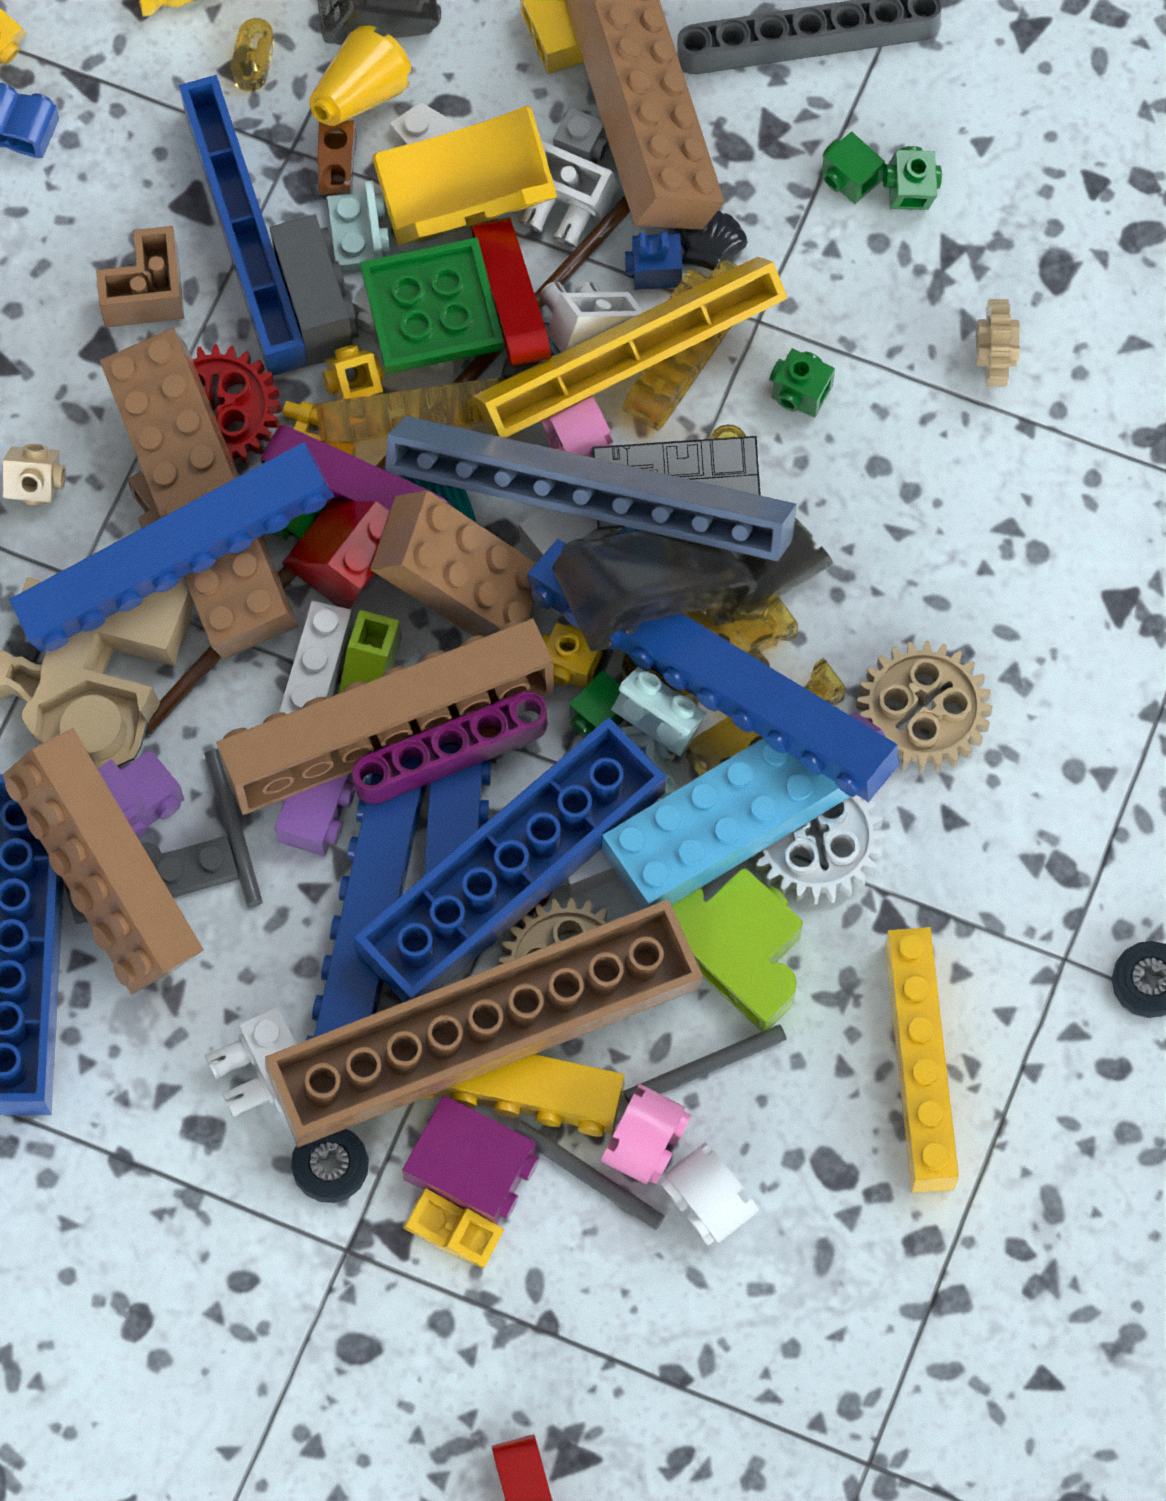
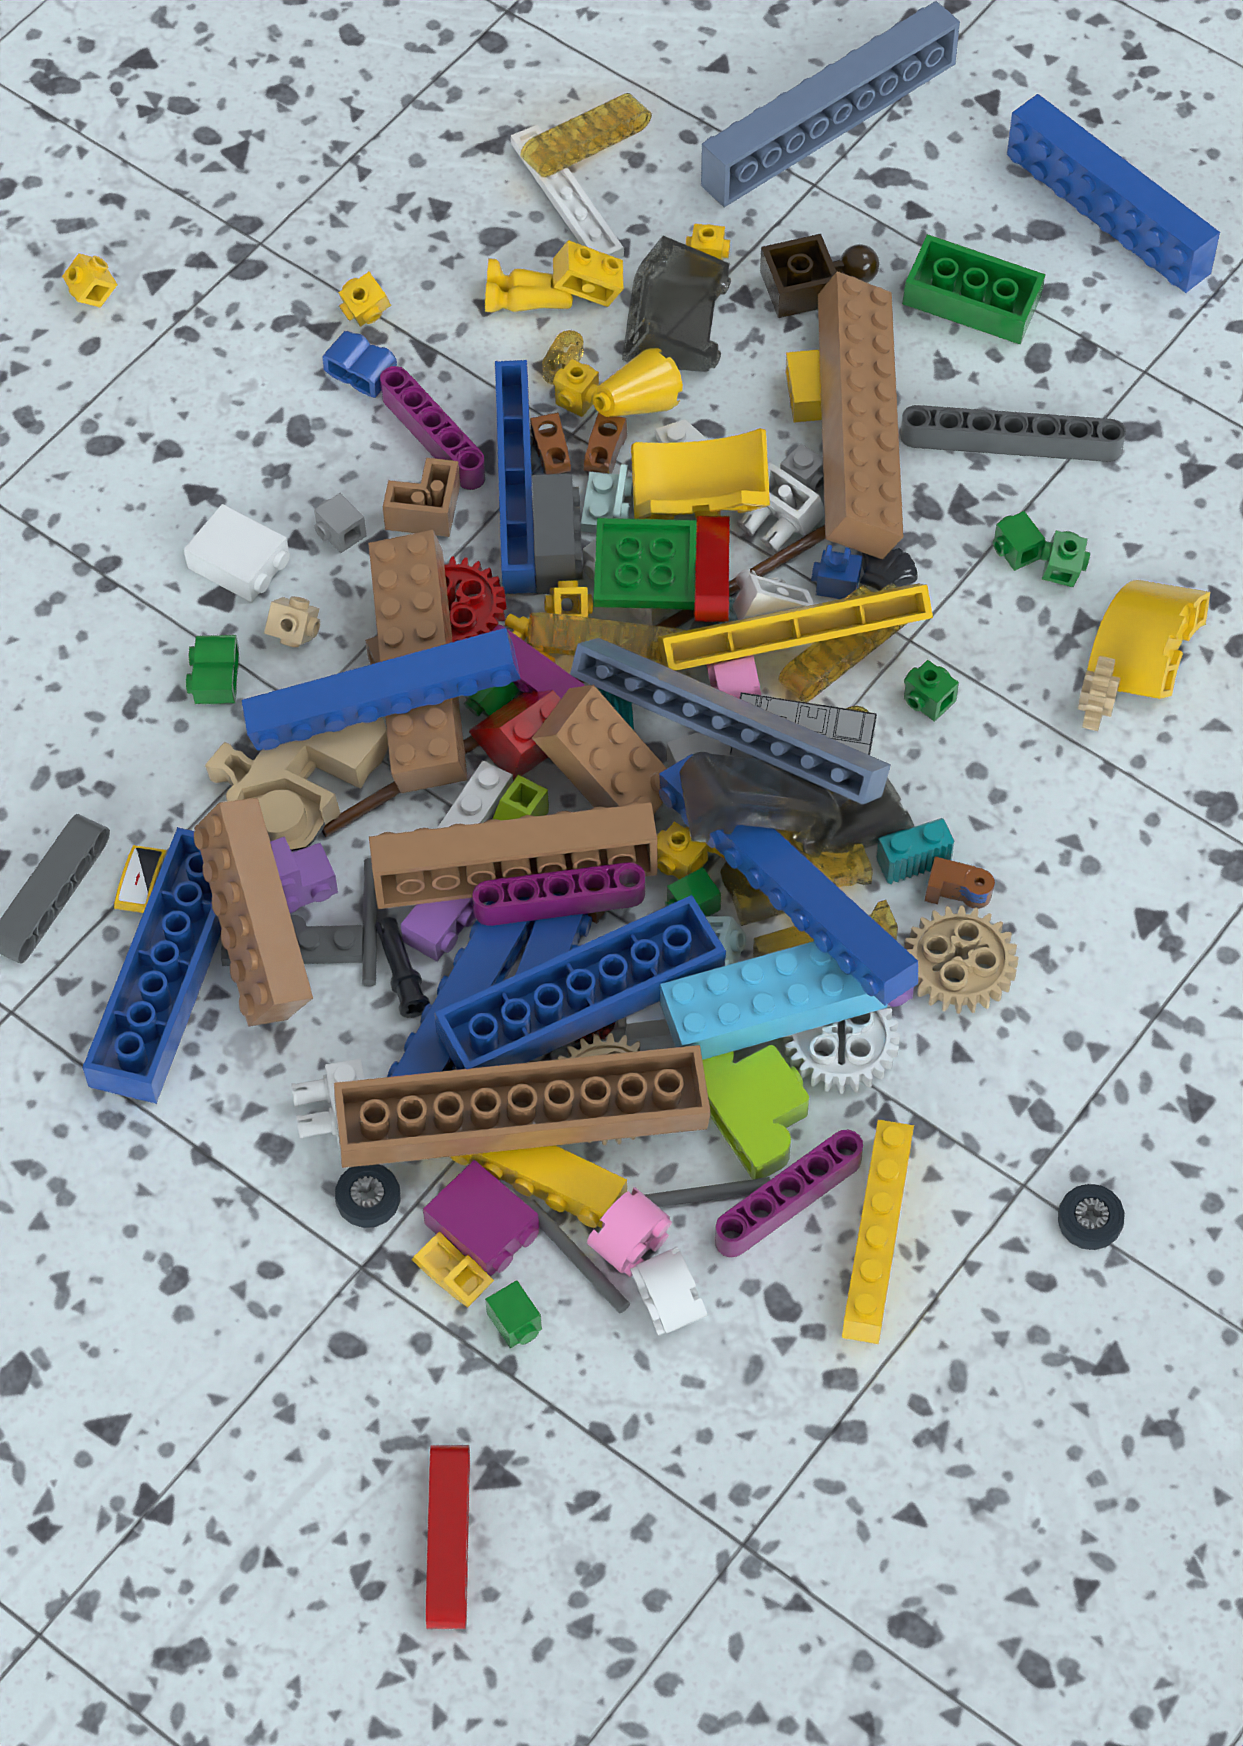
camera: 15 degrees right, 10 degrees down
(49, 333) = (339, 523): none -> light grey brick
(116, 168) = (432, 425): none -> magenta beam
(272, 173) = (550, 444): none -> dark orange leg
(282, 91) = (575, 387): none -> yellow brick
(297, 891) = (404, 979): none -> black pin
(540, 1266) = (514, 1314): none -> green brick
(658, 710) = (736, 904): light aqua bracket -> none
(814, 1020) = (783, 1208): none -> magenta beam
(838, 586) = (914, 850): none -> teal brick
(898, 612) = (960, 883): none -> dark orange leg
(1028, 252) = (1145, 632): none -> yellow panel

